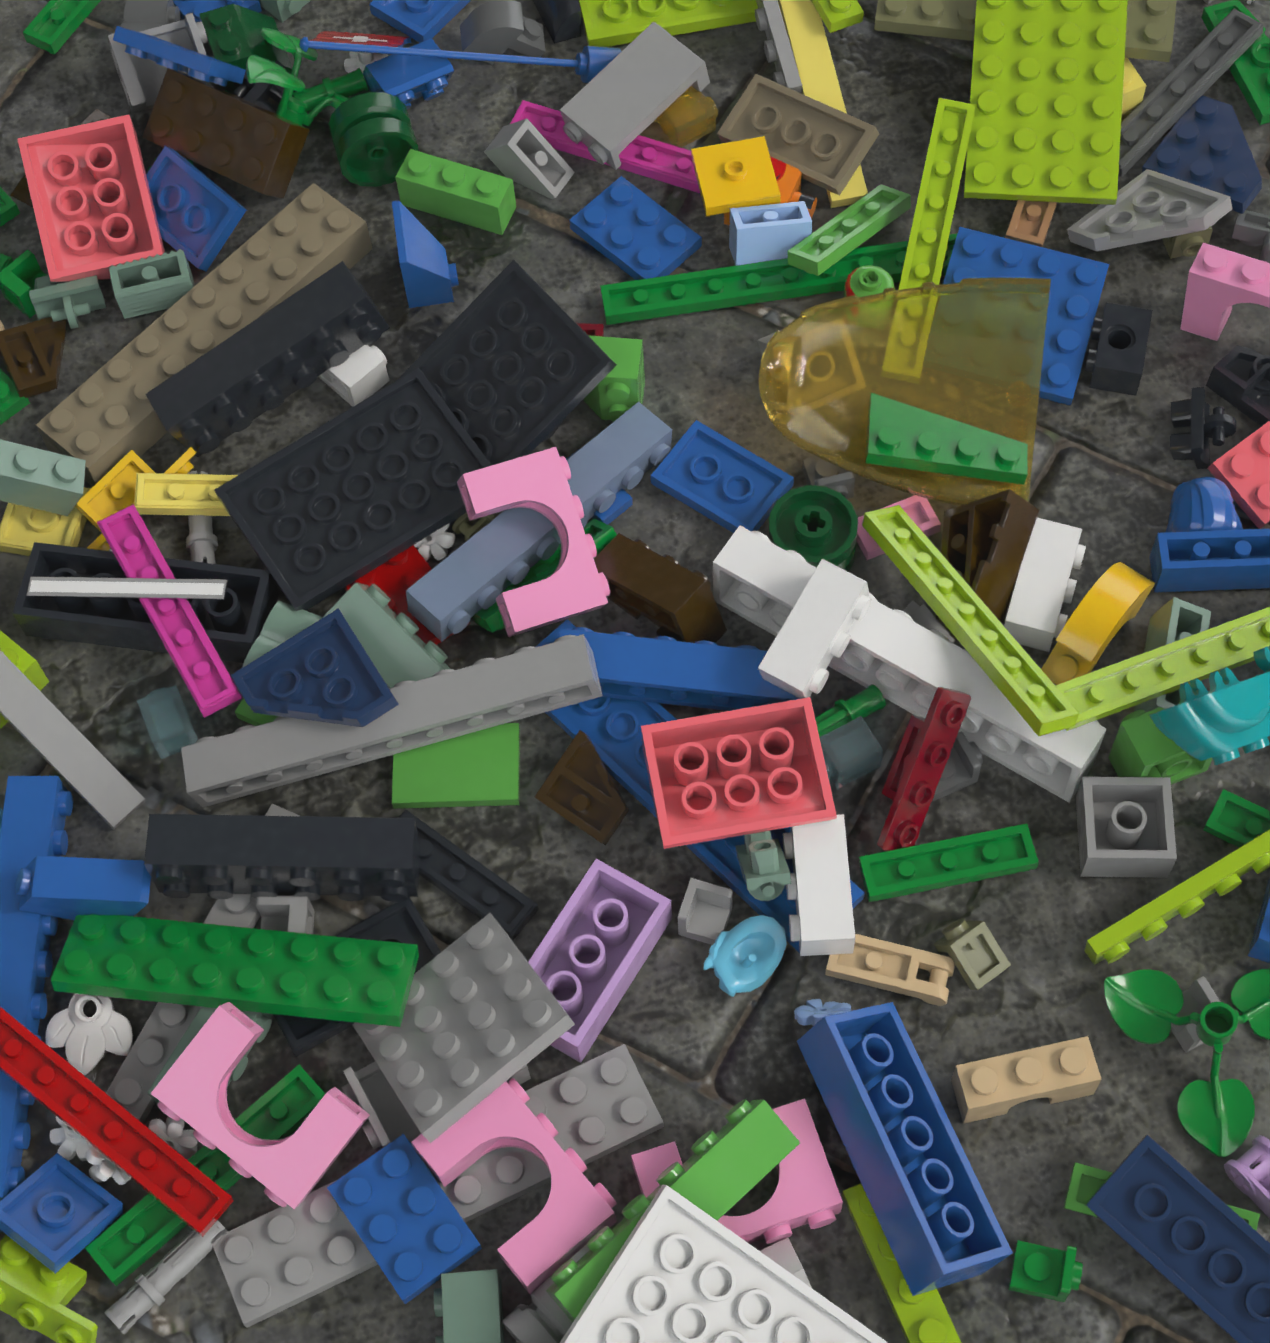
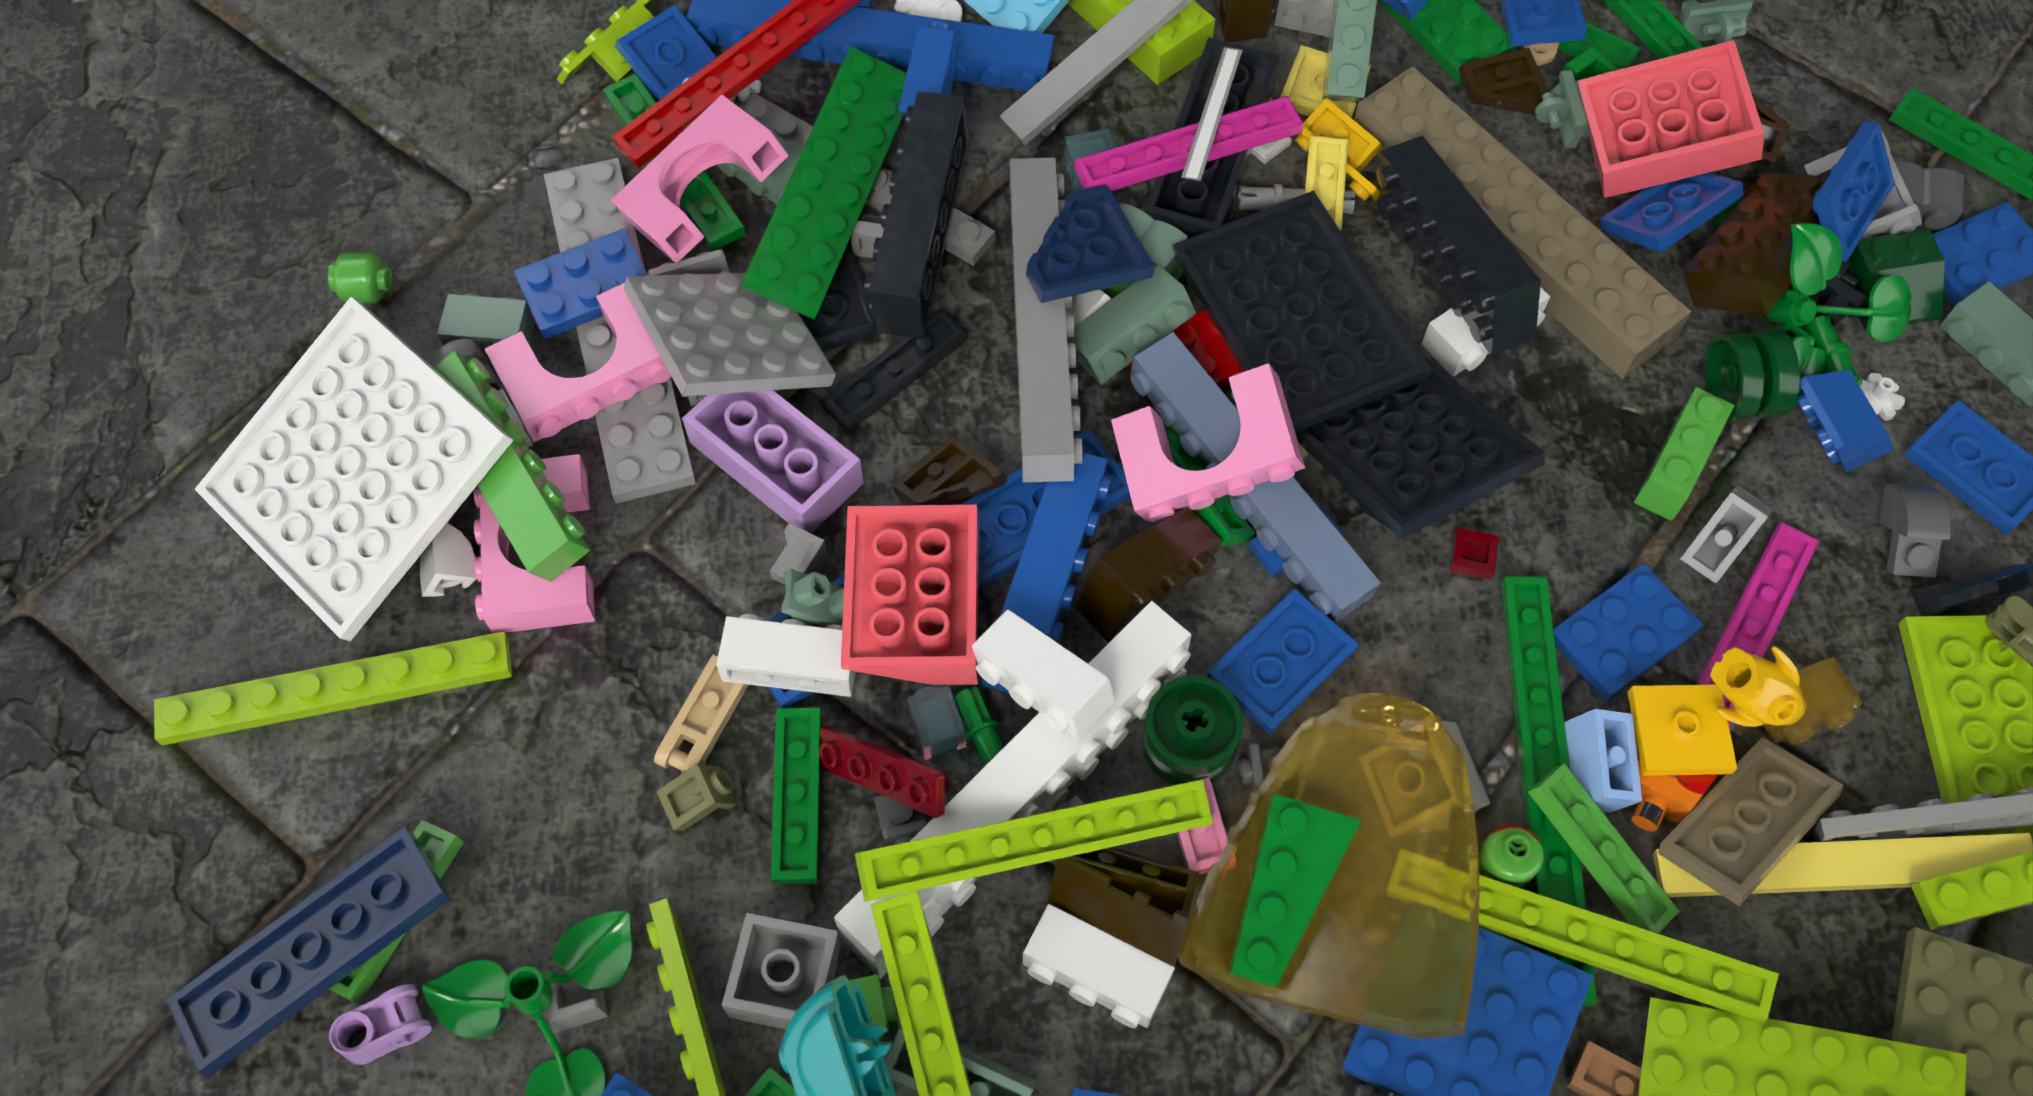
camera: 95 degrees right, 0 degrees up
(89, 1037) = (812, 90): white plate -> none
(151, 283) = (1576, 169): sand green brick -> none
(162, 1277) = (593, 117): light grey pin -> none
(422, 261) = (1588, 400): blue slope -> none
(460, 771) = (990, 384): bright green tile -> none
(587, 64) = (1885, 377): blue flag -> none
(624, 384) = (1413, 566): bright green slope -> none
(632, 93) = (1830, 647): light grey panel -> none
(702, 112) = (1759, 688): none -> yellow animal
(747, 954) = (746, 584): medium azure hat -> none
(815, 1011) = (670, 644): light blue plant -> none
(903, 1148) = (512, 677): blue brick -> none
(1045, 1271) = (376, 793): green bracket -> none
(1049, 1071) = (547, 832): tan arch -> none
(1095, 622) = (1036, 1012): yellow arch -> none

